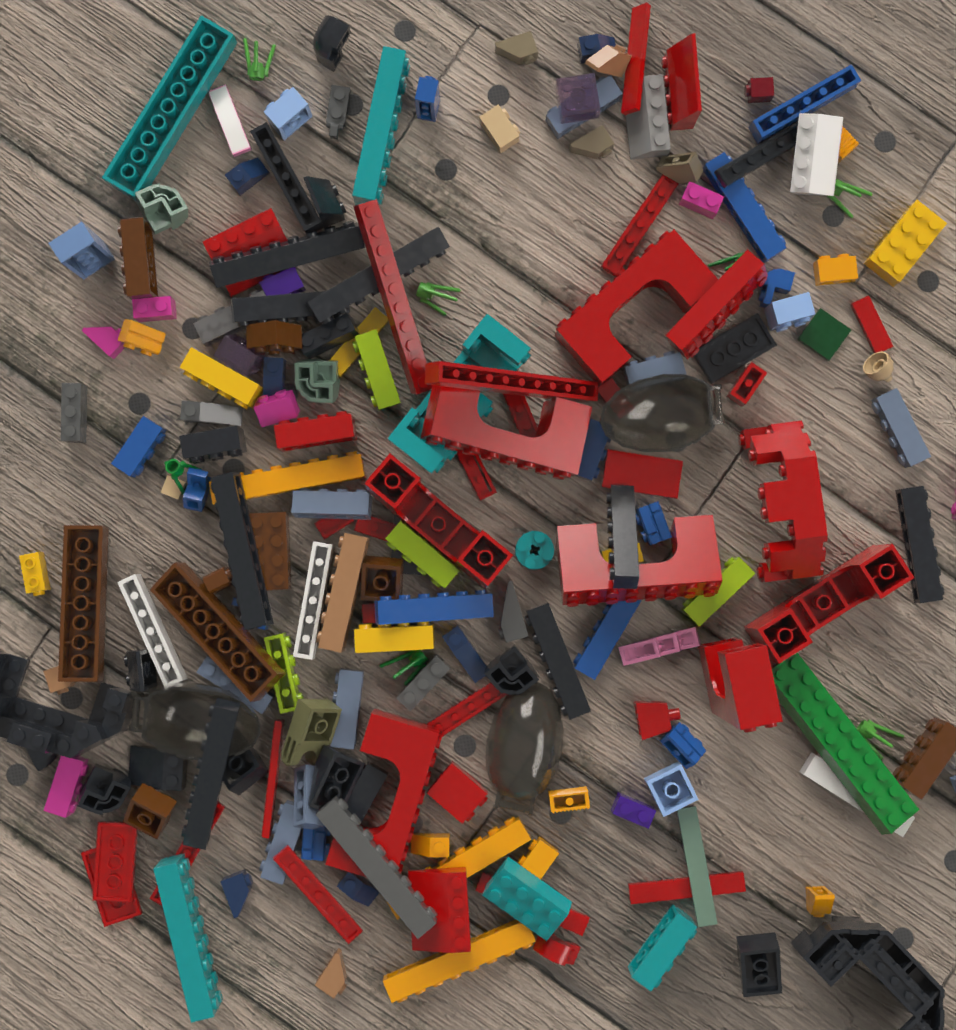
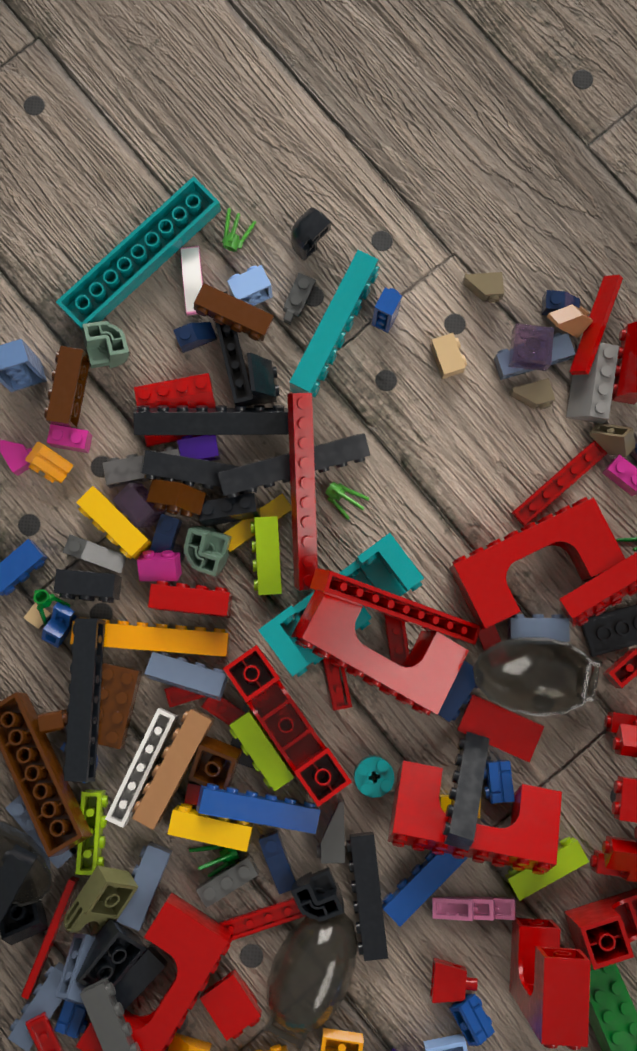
camera: 15 degrees right, 5 degrees down
(278, 141) = (233, 312): none -> reddish brown brick

